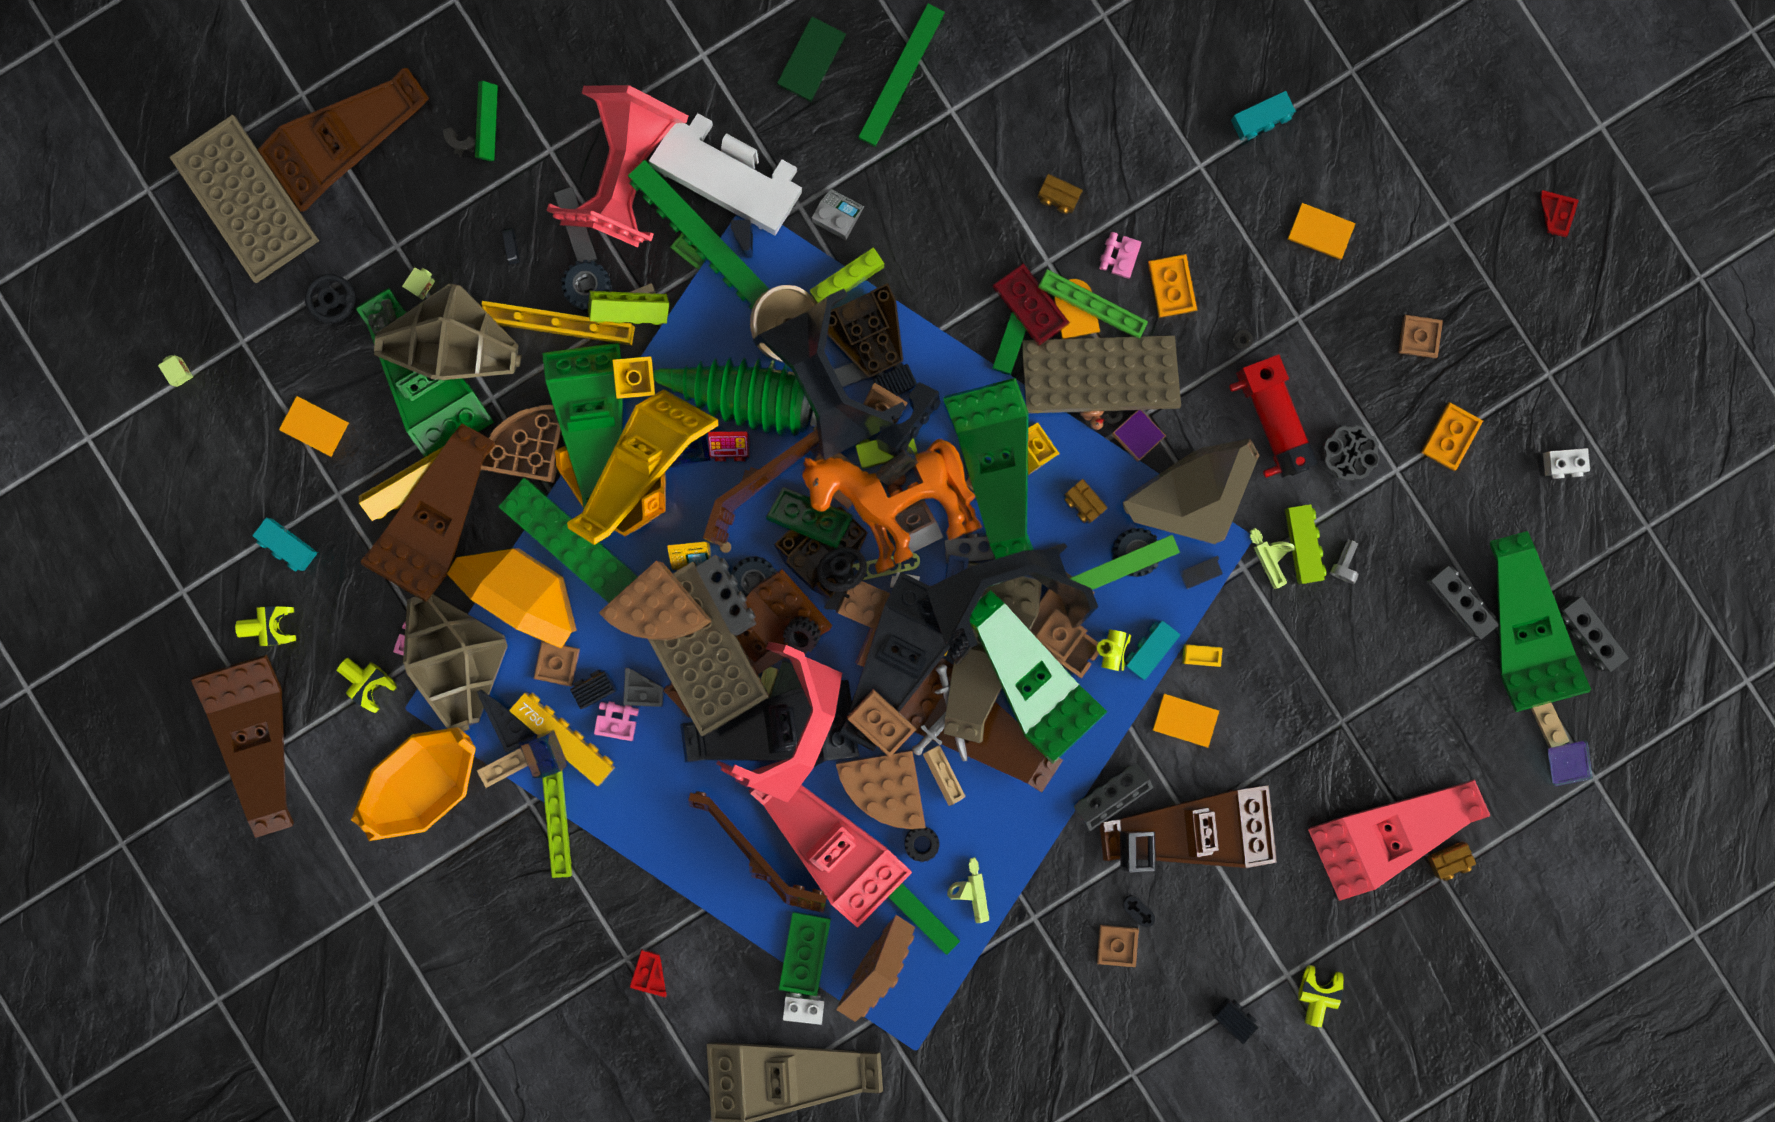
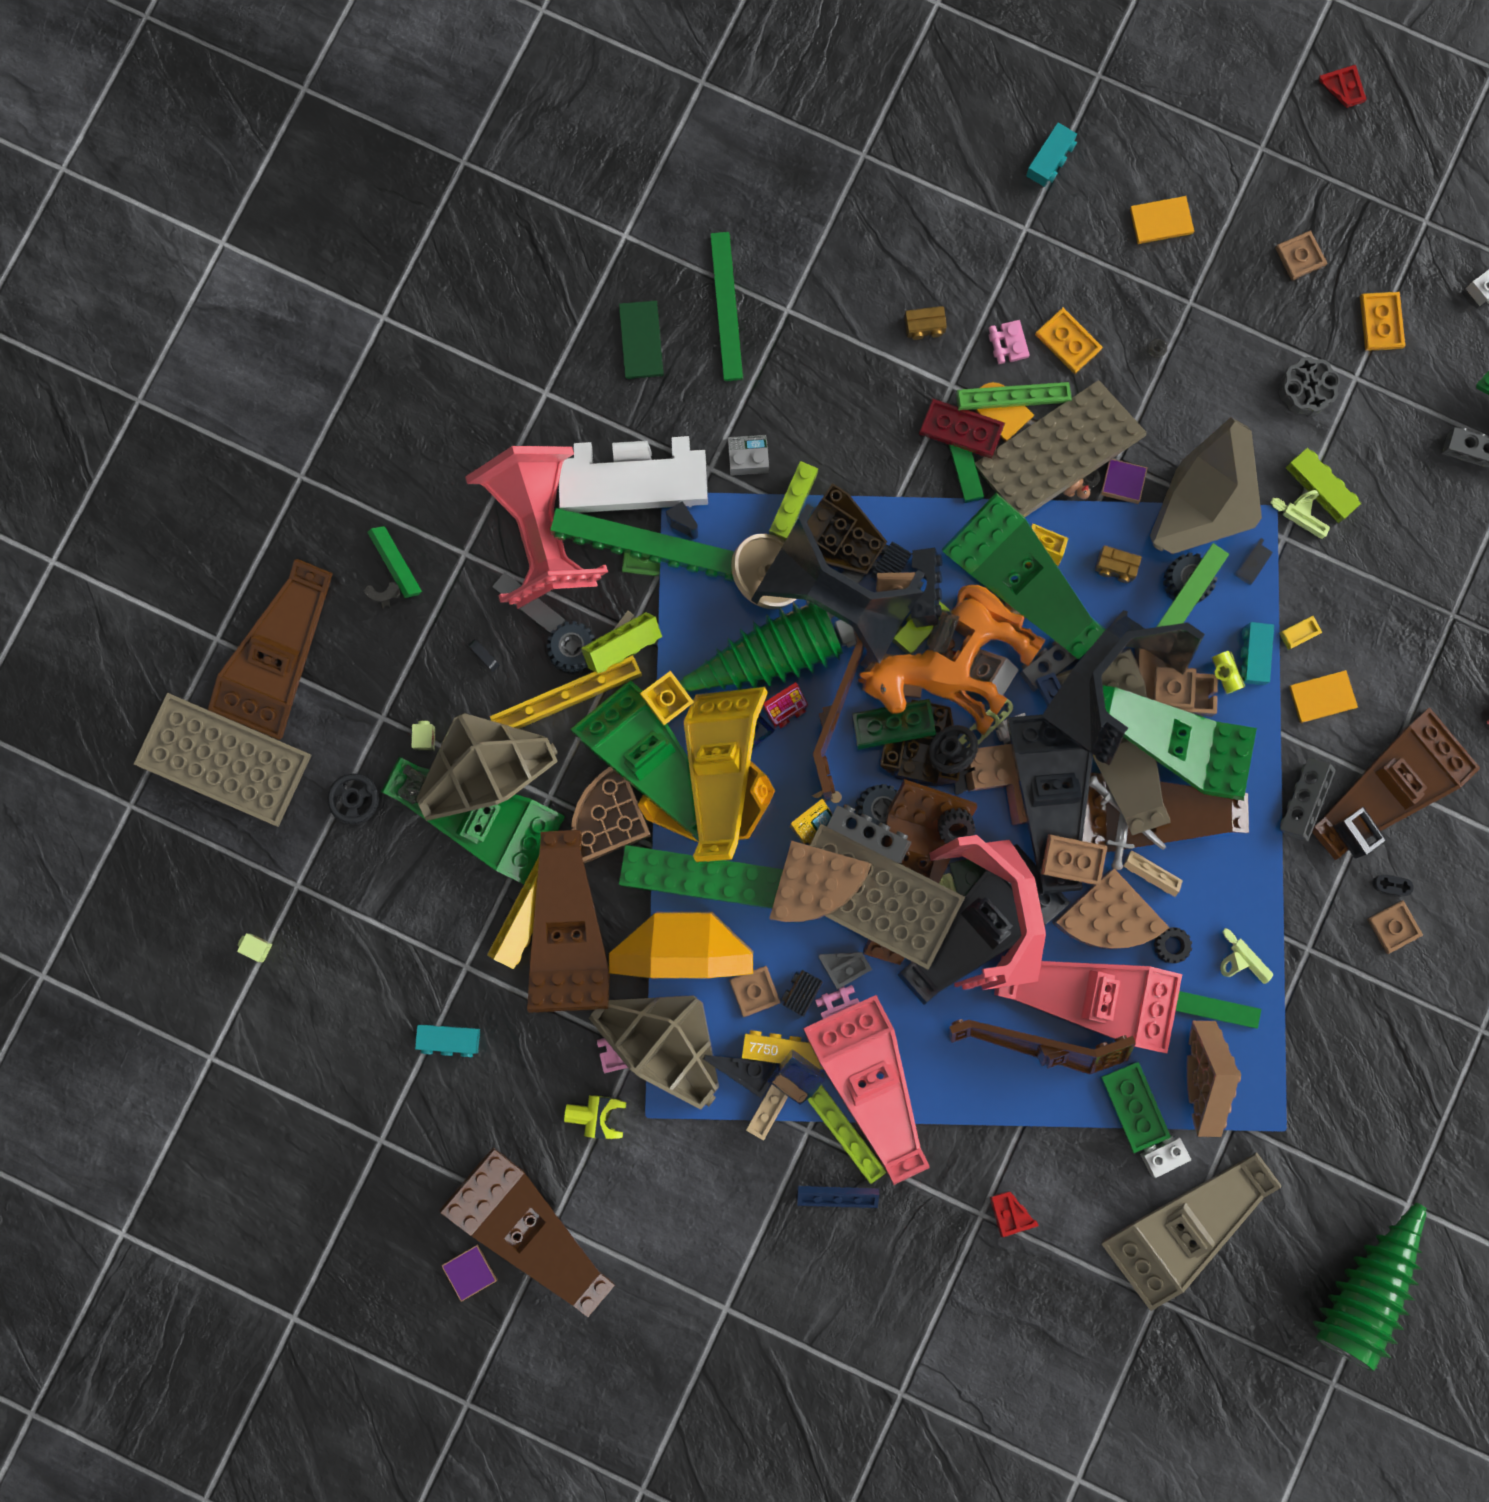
camera: 35 degrees left, 5 degrees down
(187, 742) = (469, 1273): none -> dark purple tile
(266, 626) = (476, 1123): neon yellow connector -> none
(314, 426) = (407, 919): light orange tile -> none
(415, 784) = (700, 1176): light orange panel -> none
(518, 870) = (838, 1197): none -> dark blue plate
(606, 762) = (855, 1049): none -> coral wing
(1277, 415) = (1230, 391): red piece -> none
(1341, 569) = (1367, 487): light grey piece -> none

